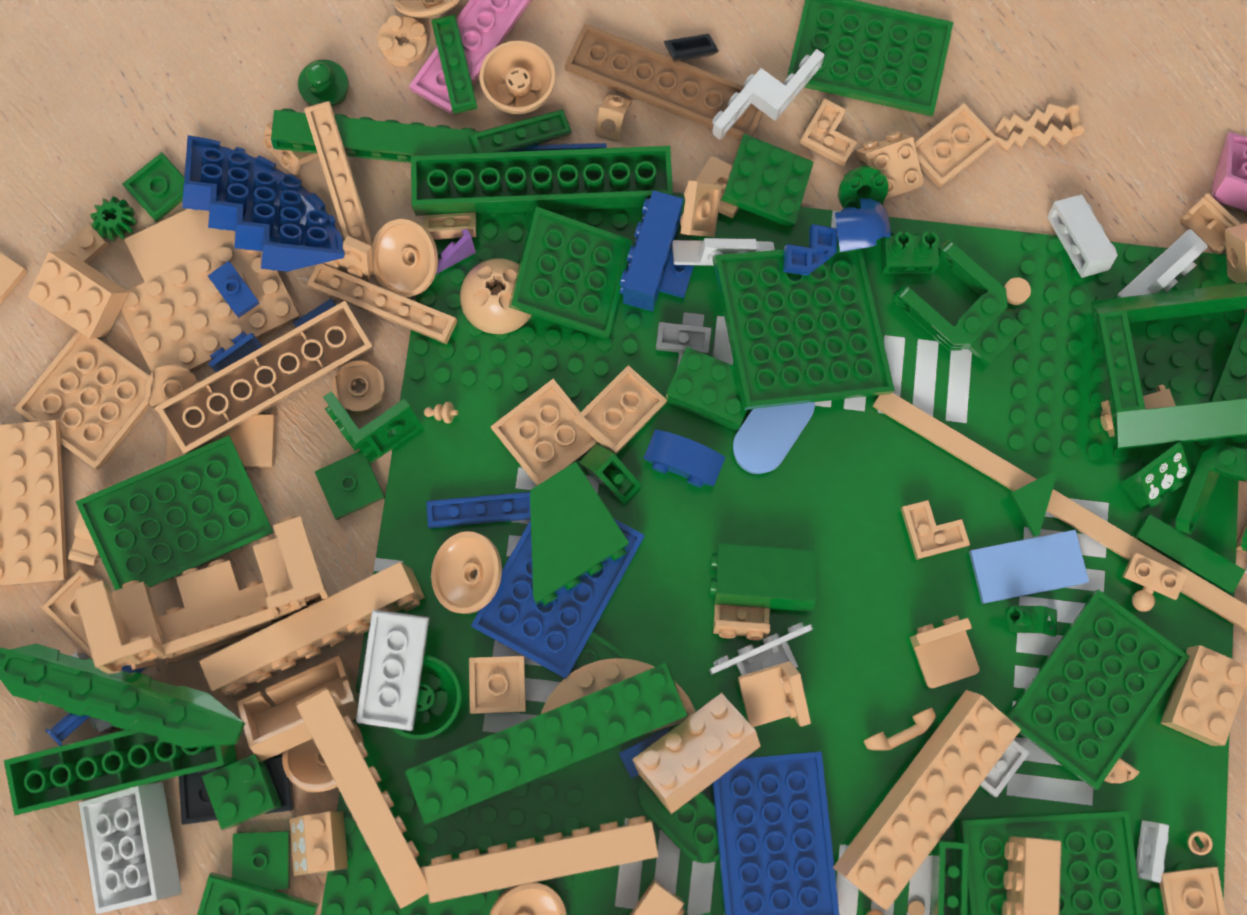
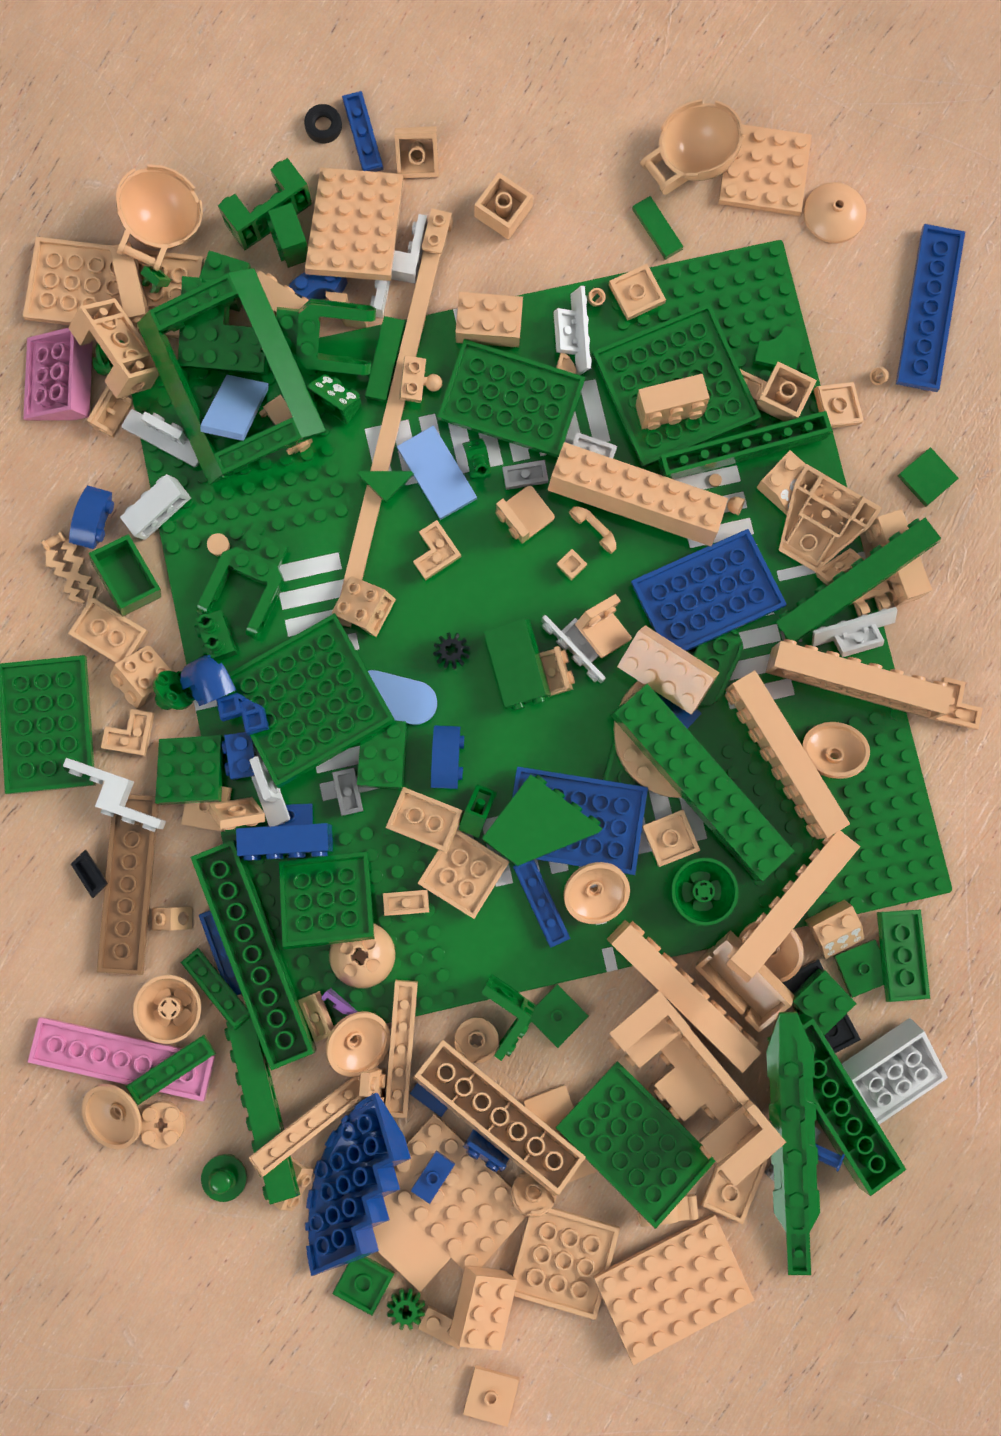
camera: 115 degrees left, 5 degrees up
(392, 670) = (694, 918): white tile -> none
(441, 412) = (475, 963): light nougat hair -> none
(536, 360) = (406, 902): none -> light nougat plate
(768, 234) = (239, 751): none -> blue bracket
(796, 508) = (448, 644): none -> black gear
(864, 687) = (571, 564): none -> light nougat plate
(892, 427) = (364, 605): none -> light nougat bracket
(994, 670) = (525, 474): none -> light grey plate
(1012, 179) = (125, 575): none -> green piece
(1091, 165) = (90, 517): none -> blue brick
(1151, 850) = (614, 328): white plate -> none
(1163, 795) = (572, 331): none -> white bracket
(1176, 354) = (234, 407): none -> light blue tile

